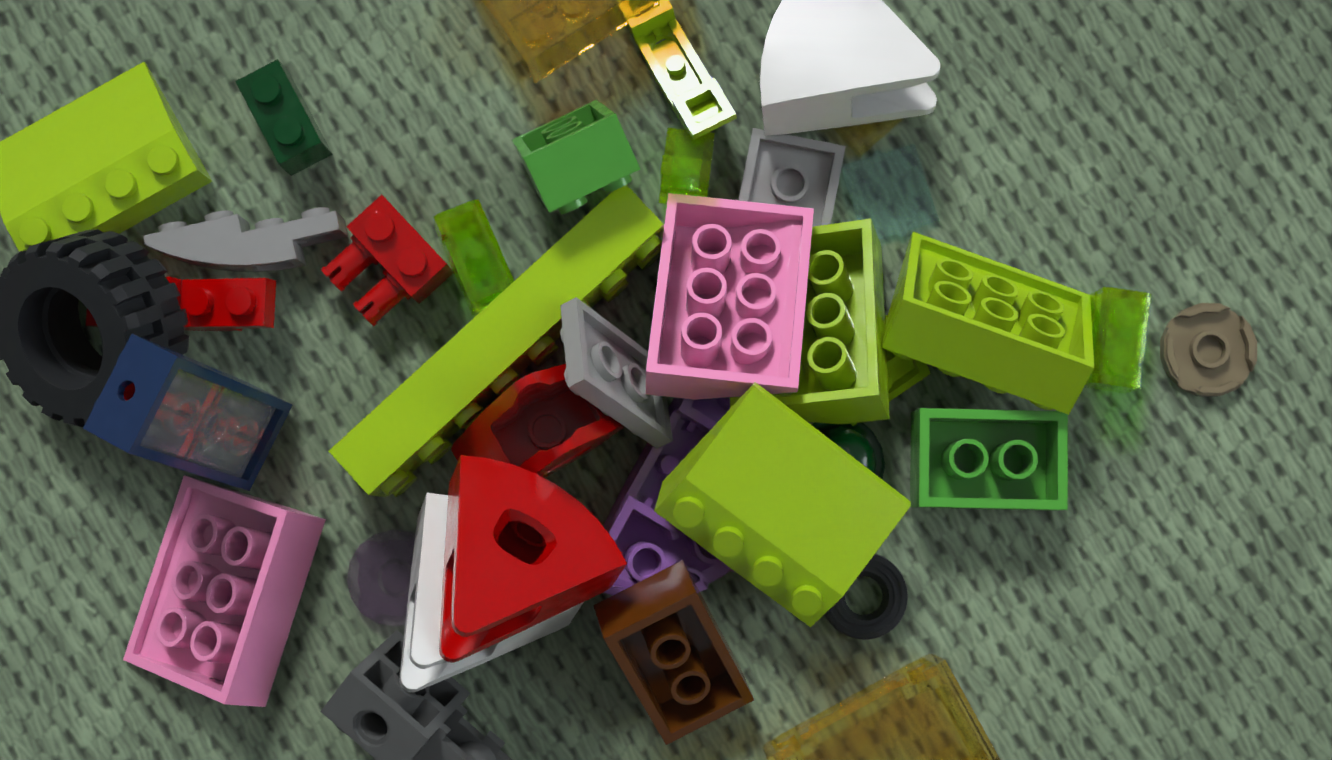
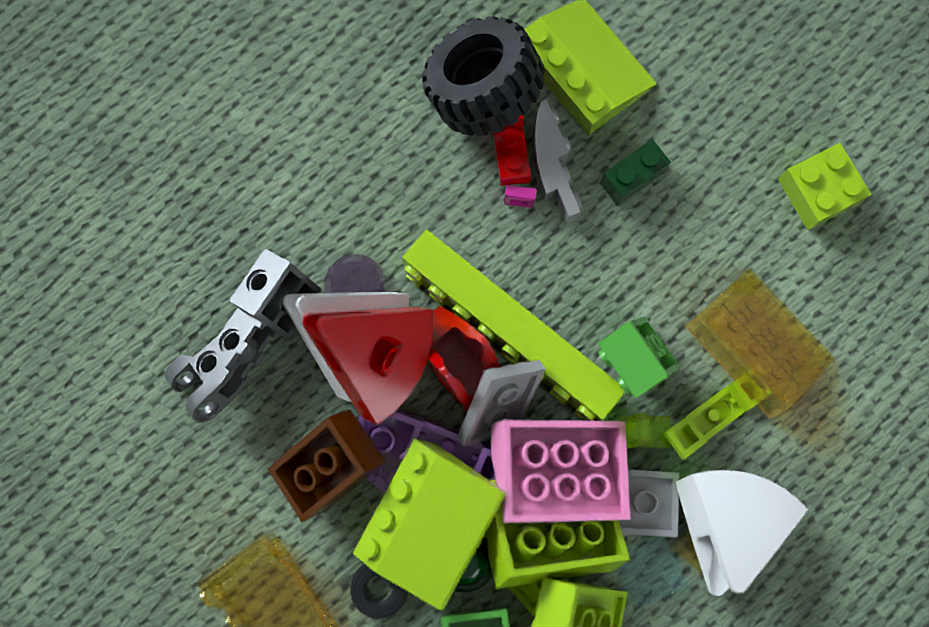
camera: 80 degrees right, 5 degrees down
(186, 414) = (437, 141): brick -> none
(224, 593) = (333, 182): bright pink slope -> none
(294, 301) = (519, 196): none -> dark pink tile
(408, 260) = (556, 262): red brick -> none
(473, 254) = (566, 302): clear neon green brick -> none

